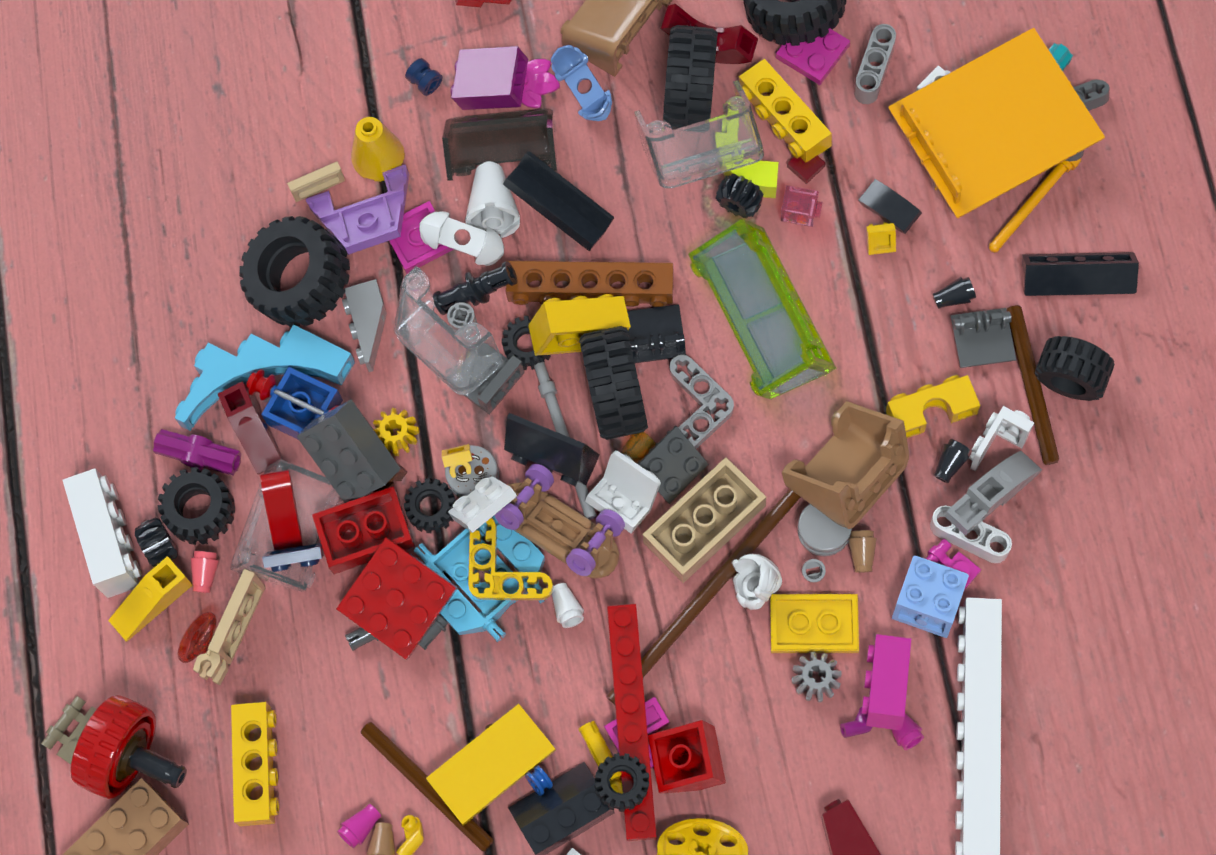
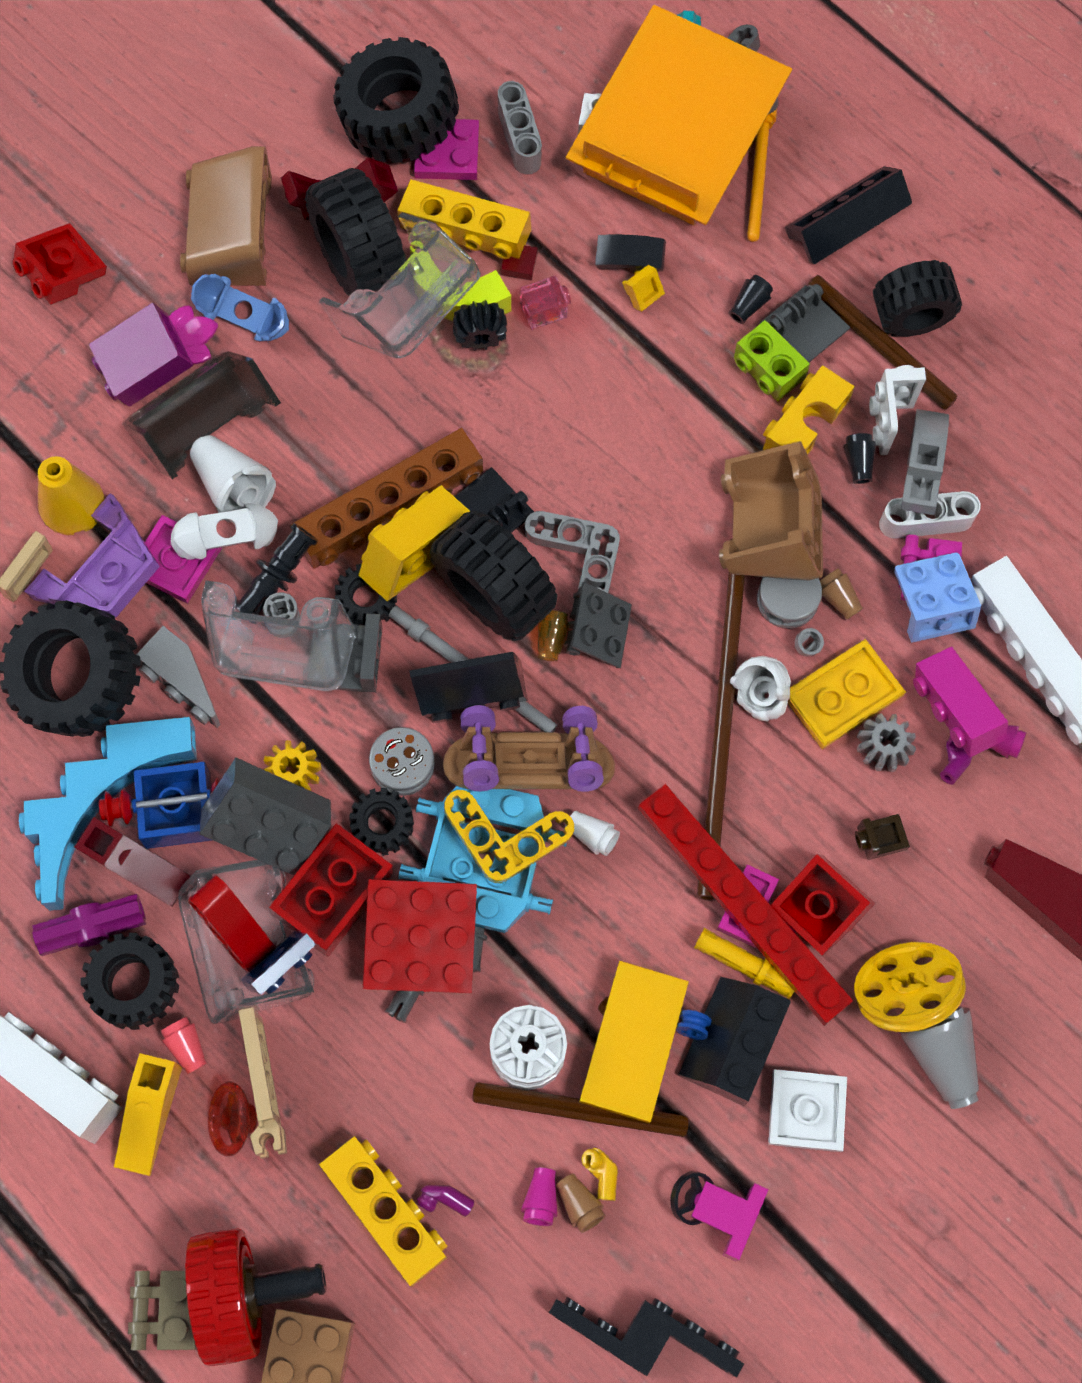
camera: 45 degrees left, 0 degrees up
(155, 541) = (112, 1048): black gear -> none
(300, 782) = (446, 1195): none -> magenta arm
(423, 76) = (66, 394): dark blue wheel -> none
(427, 734) = (537, 1067): none -> white wheel
(457, 456) = (380, 750): yellow tile -> none
(482, 503) = (443, 781): white plate -> none
(559, 201) = (301, 433): black panel -> none
(621, 800) = (780, 988): black tyre -> none
(626, 490) = (573, 677): white bracket -> none
(704, 520) = (672, 659): tan brick -> none
(762, 309) = (577, 423): clear light blue windscreen -> none
(764, 740) = (881, 837): none -> dark brown bracket
(941, 348) = (777, 357): none -> lime brick

